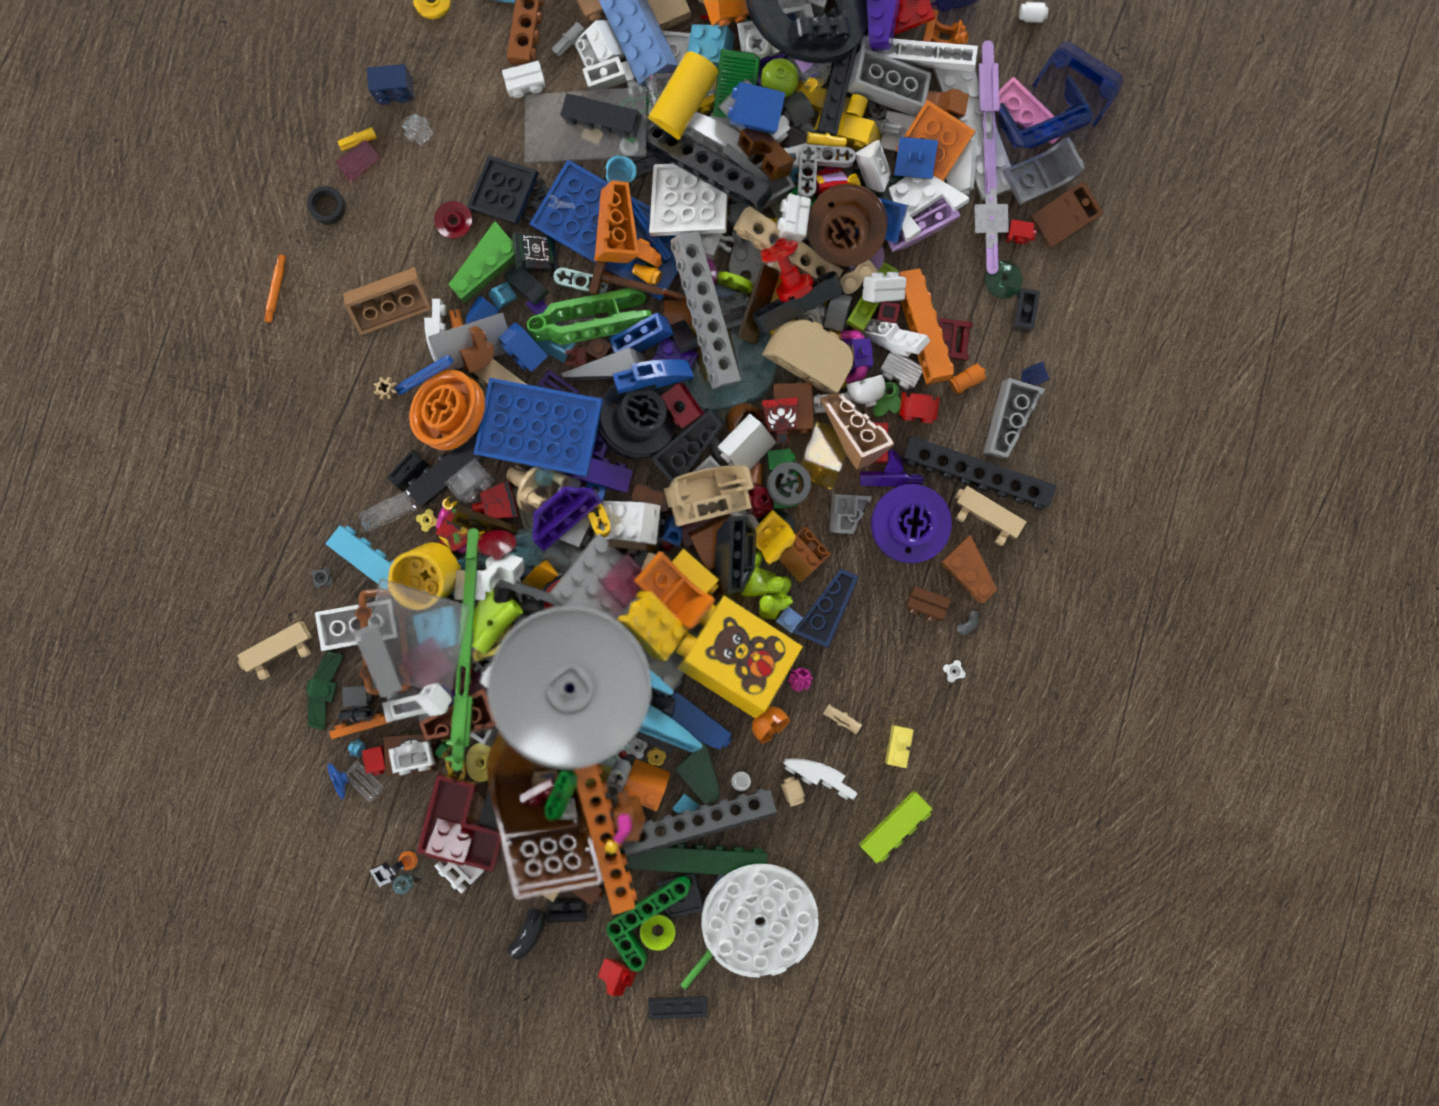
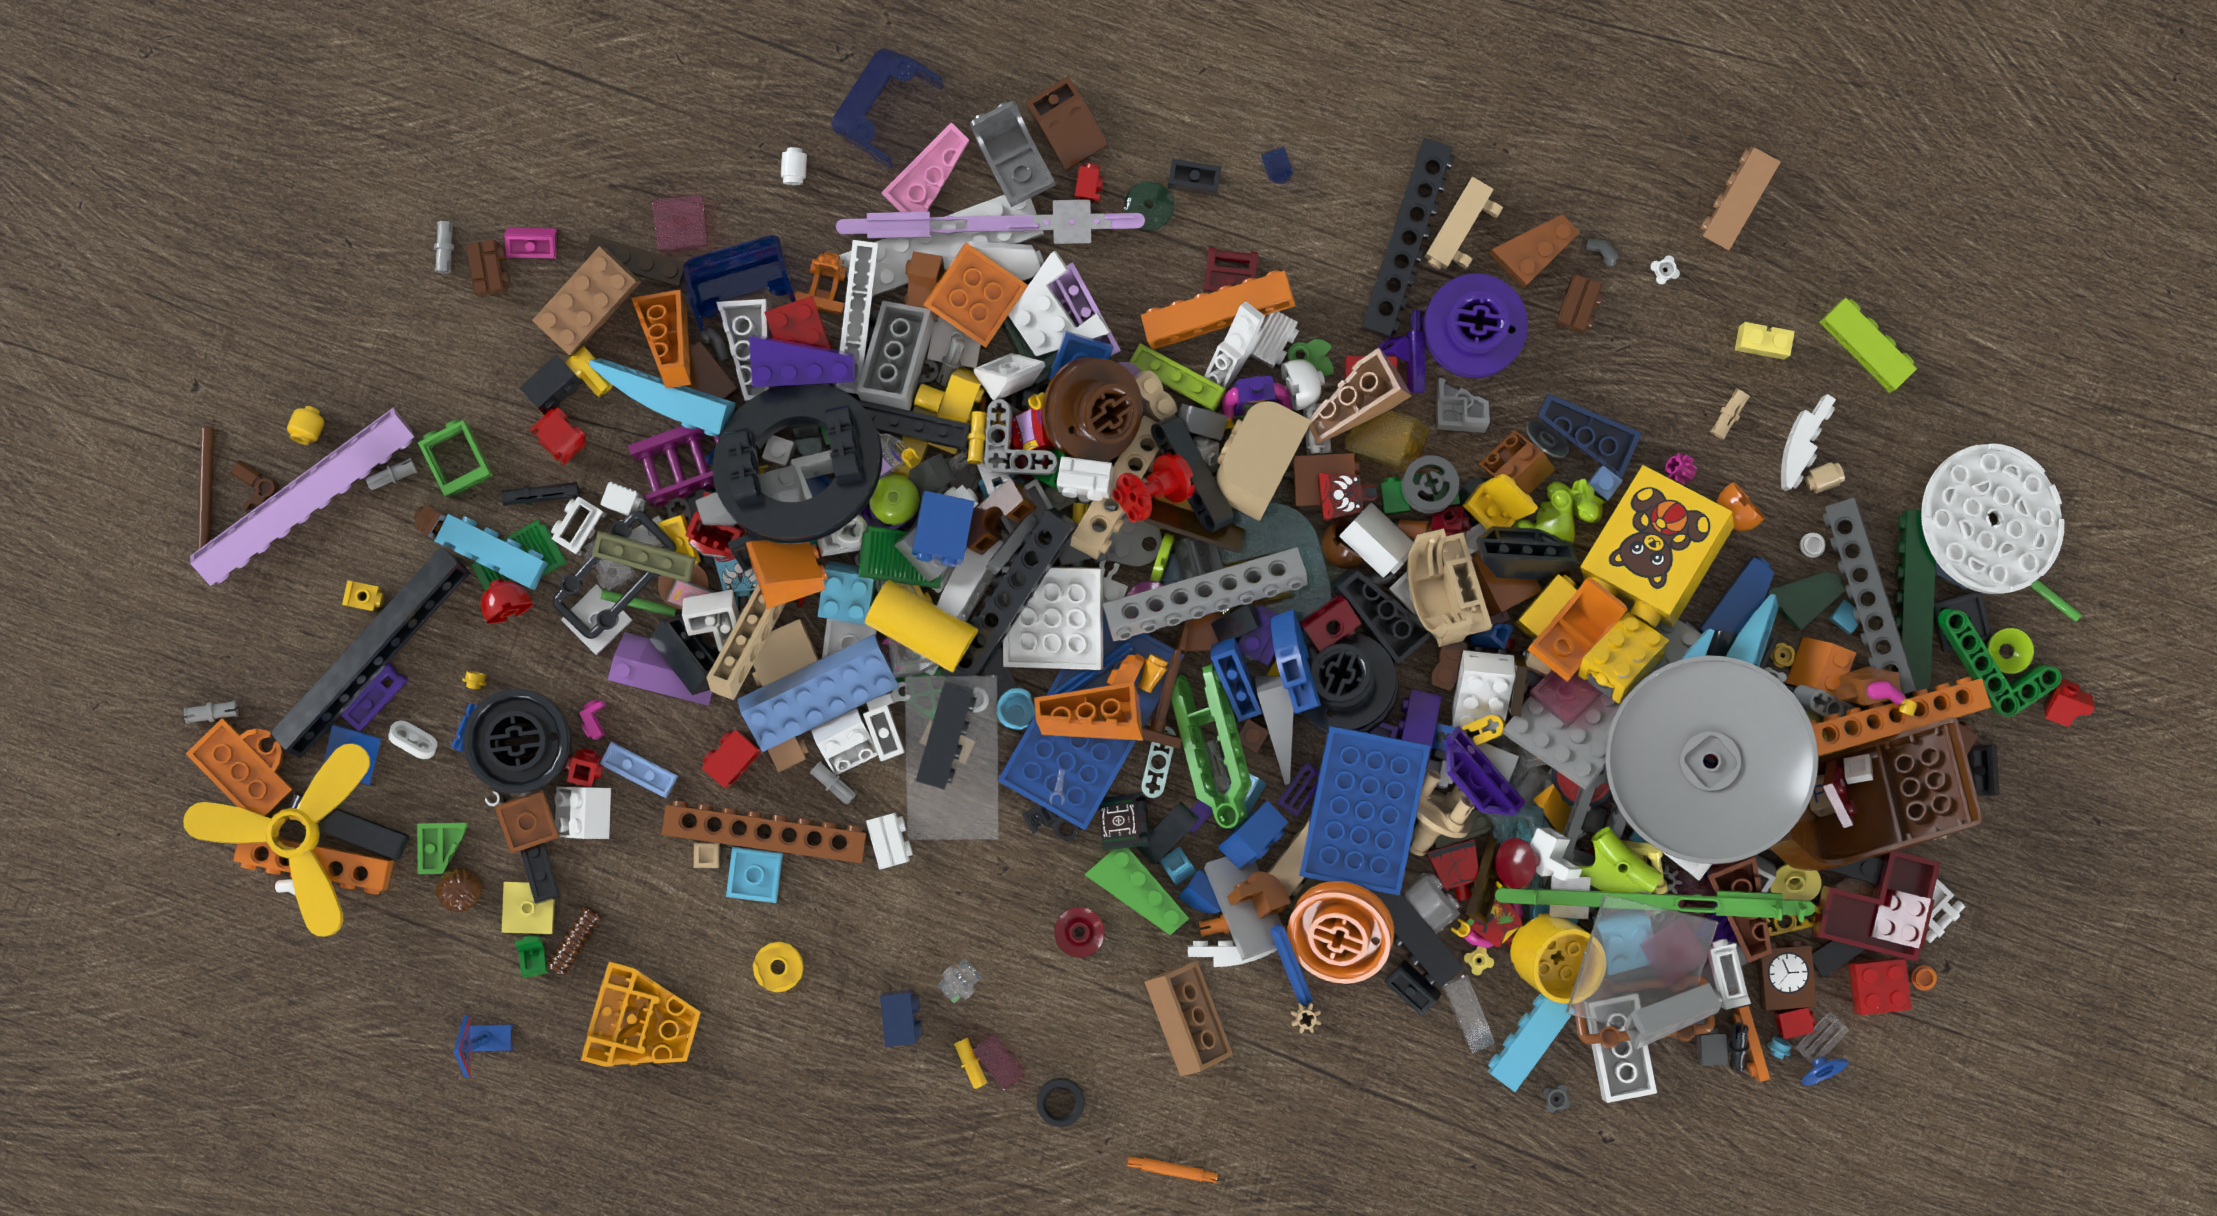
camera: 85 degrees left, 0 degrees up
(274, 647) = (1650, 1159): tan brick -> none
(322, 689) = (1703, 1095): dark green plate -> none
(384, 873) = (1943, 1005): black plate -> none
(400, 825) = (1880, 986): none -> red brick
(404, 877) = (1962, 983): clear light blue bush -> none
(409, 749) = (1808, 978): white window -> none
(423, 787) = (1833, 955): none -> black tile
(434, 700) = (1722, 940): white brick -> none
(443, 750) = (1781, 931): green tile -> none
(503, 190) = (1040, 866): black plate -> none
(528, 935) = (2017, 817): black cylinder -> none
(543, 477) = (1430, 802): clear light blue plate -> none
(565, 785) = (1831, 764): green beam -> none
(578, 357) = (1262, 762): clear red tile -> none
(677, 1007) = (2104, 624): black tile -> none
(823, 576) = (1547, 439): none -> dark grey dish
(884, 288) = (1171, 361): white brick -> none
(888, 312) = (1198, 355): dark red brick -> none
(916, 158) = (998, 320): blue piece -> none
(919, 407) = (1324, 316): red brick -> none
(967, 379) = (1283, 252): orange piece -> none
(1009, 728) = (1740, 197): none -> medium nougat wedge
(1010, 416) = (1334, 197): light grey wedge -> none
(1070, 120) = (945, 113): clear blue windscreen -> none

